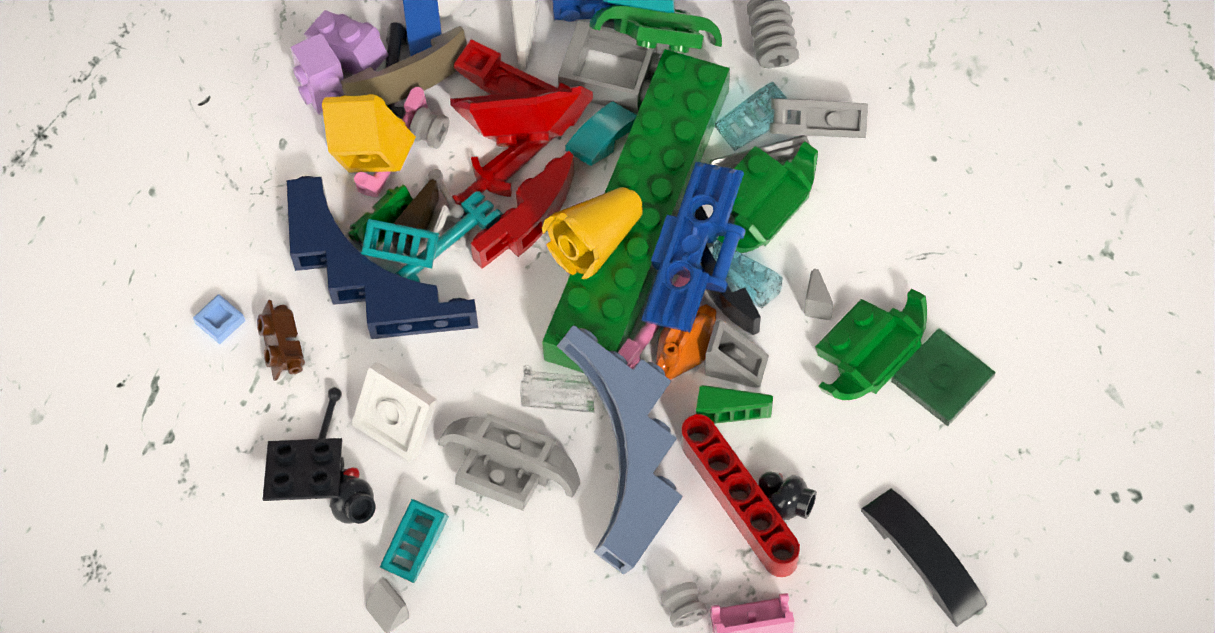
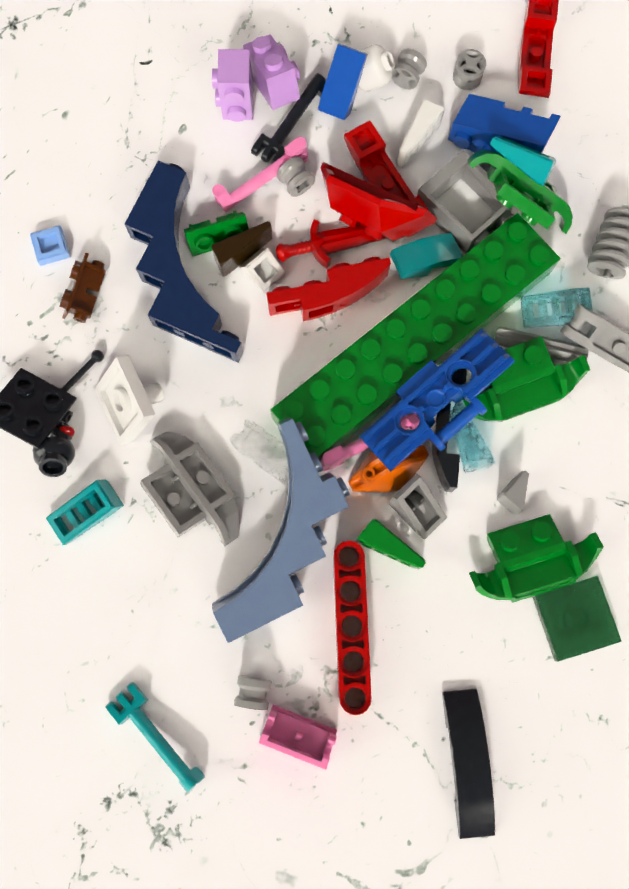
camera: 25 degrees right, 15 degrees up
(365, 134) = (238, 155): yellow slope -> none
(372, 235) = (191, 246): teal slope -> none
(387, 606) = (32, 554): light grey slope -> none
(419, 70) = (314, 125): dark tan slope -> none
(456, 210) = (279, 220): light grey hinge -> none
(474, 216) = (285, 271): teal hinge -> none
(591, 230) = (362, 341): yellow cone -> none
(789, 496) = (393, 653): black animal -> none

